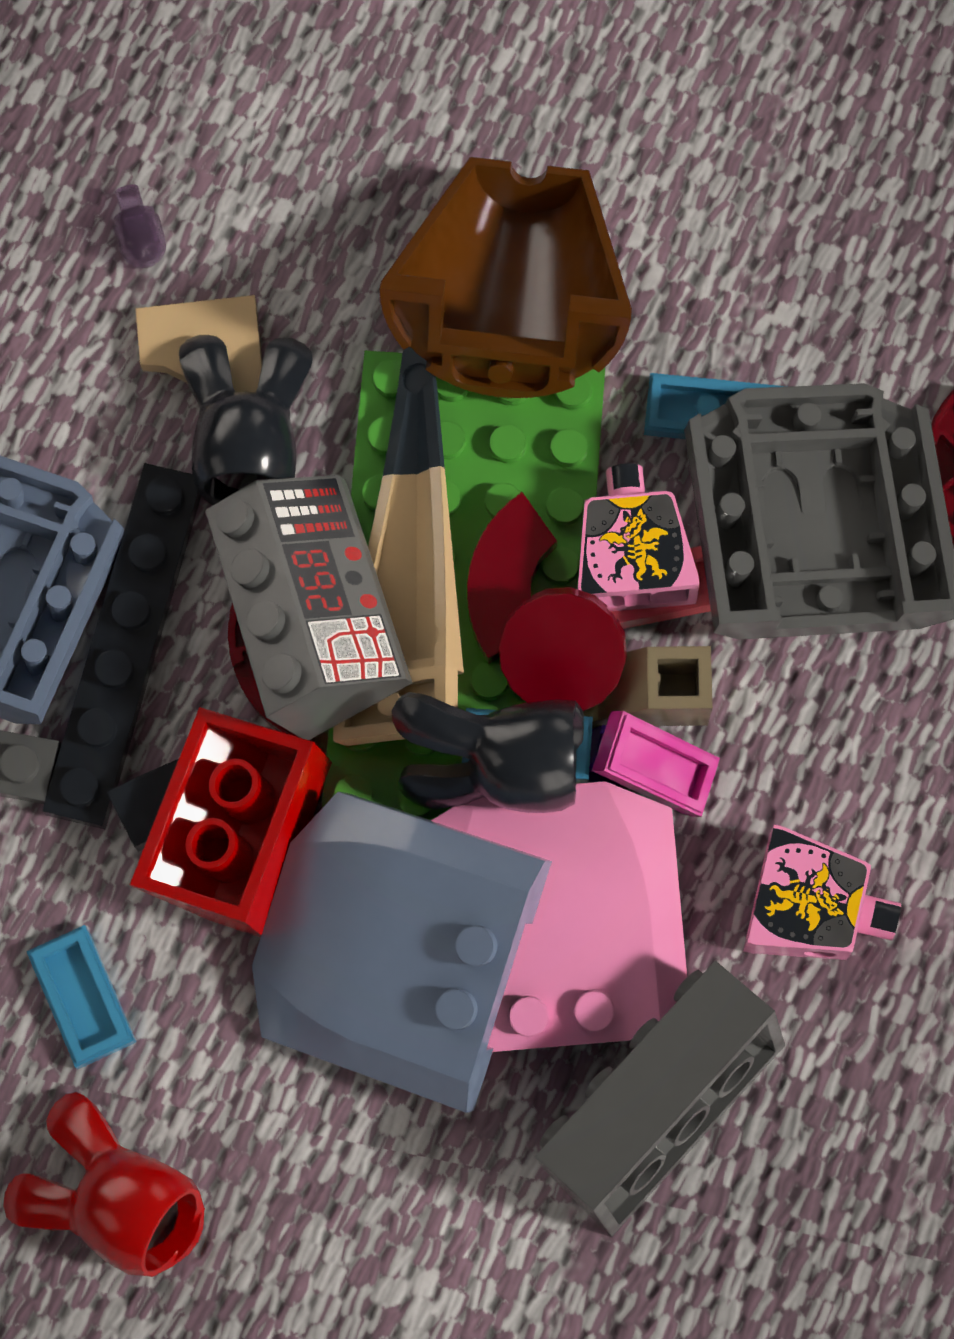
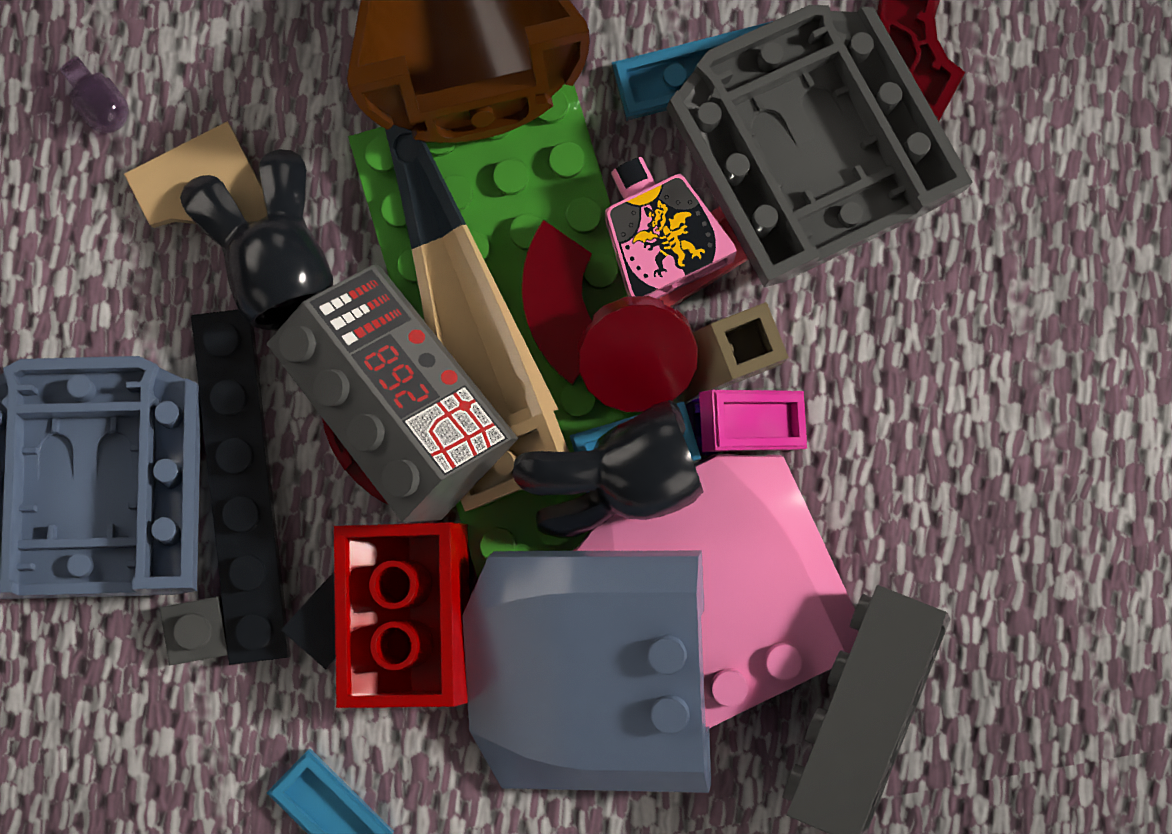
camera: 25 degrees left, 10 degrees up
(814, 901) = (932, 488): torso -> none

